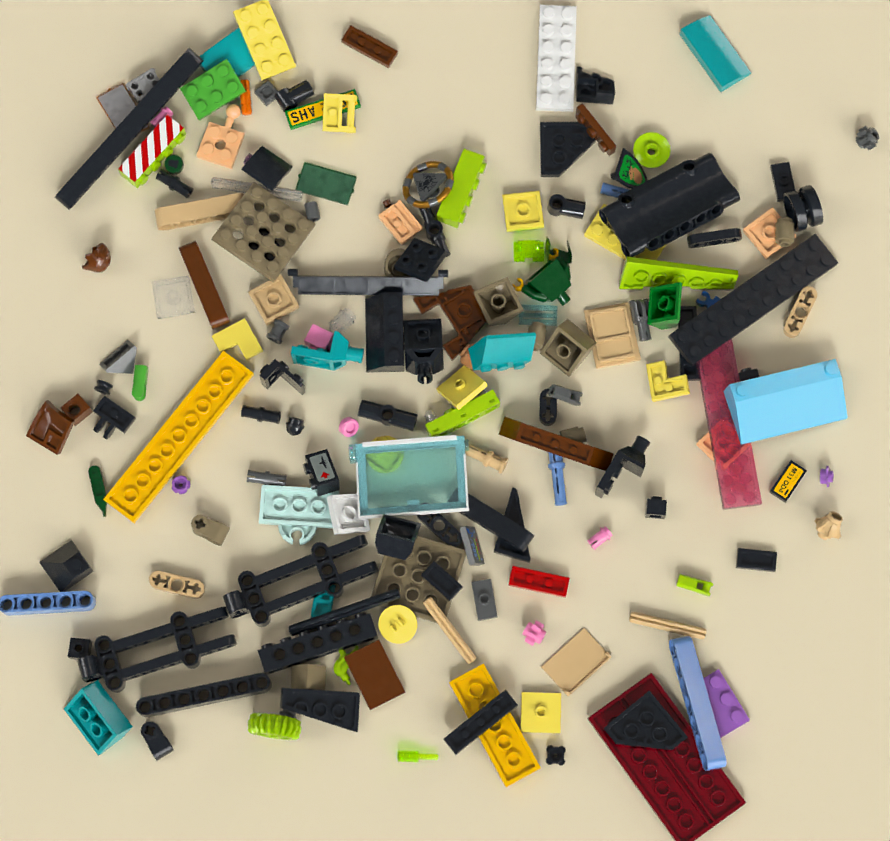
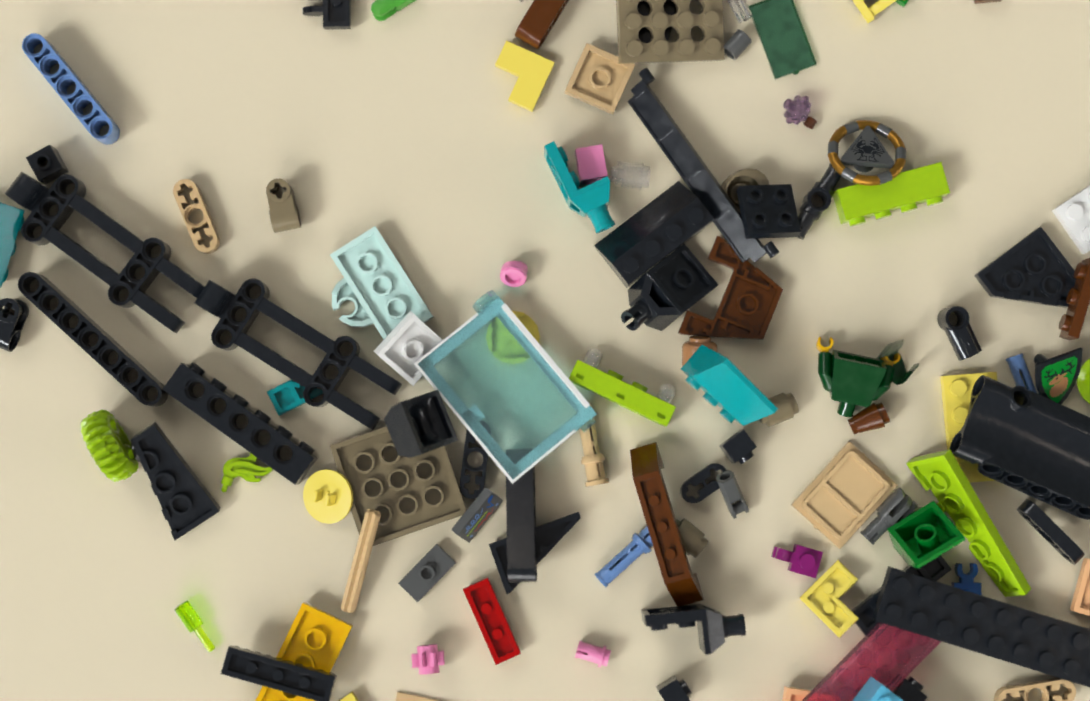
camera: 50 degrees right, 10 degrees up
(66, 566) = (130, 79): black slope -> none
(98, 488) = (242, 47): dark green piece -> none
(178, 437) = (363, 92): yellow plate -> none
(180, 479) = (306, 130): medium lavender plate -> none
(261, 414) = (456, 164): black pin -> none
(266, 478) = (387, 225): dark grey pin -> none
(272, 372) = (507, 140): black bracket -> none
(277, 331) = (566, 111): dark grey bush -> none
(294, 426) = (471, 212): black plate -> none
(308, 677) = (194, 441): dark tan piece -> none
(322, 472) = (436, 284): brick -> none
(344, 612) = (297, 427): black axle -> none
(374, 205) = (797, 109): none -> clear purple plant
(374, 675) = (251, 511): reddish brown tile -> none
(399, 419) = (553, 291): black piece -> none
(400, 222) = (798, 154): light nougat plate -> none
(442, 581) = (410, 511): black tile -> none
(461, 387) = (653, 369): light yellow plate -> none
(498, 302) = (784, 337): dark tan slope -> none
(523, 211) = (917, 285): light yellow plate -> none
(528, 249) = (874, 325): clear neon green piece -> none
(538, 315) = (818, 411): clear light blue tile -> none
(541, 372) = (738, 447): none -> black plate
(568, 347) = (791, 456): dark tan slope -> none
(579, 288) = (869, 419): none -> reddish brown cone
(630, 384) = (802, 559): none -> magenta plate

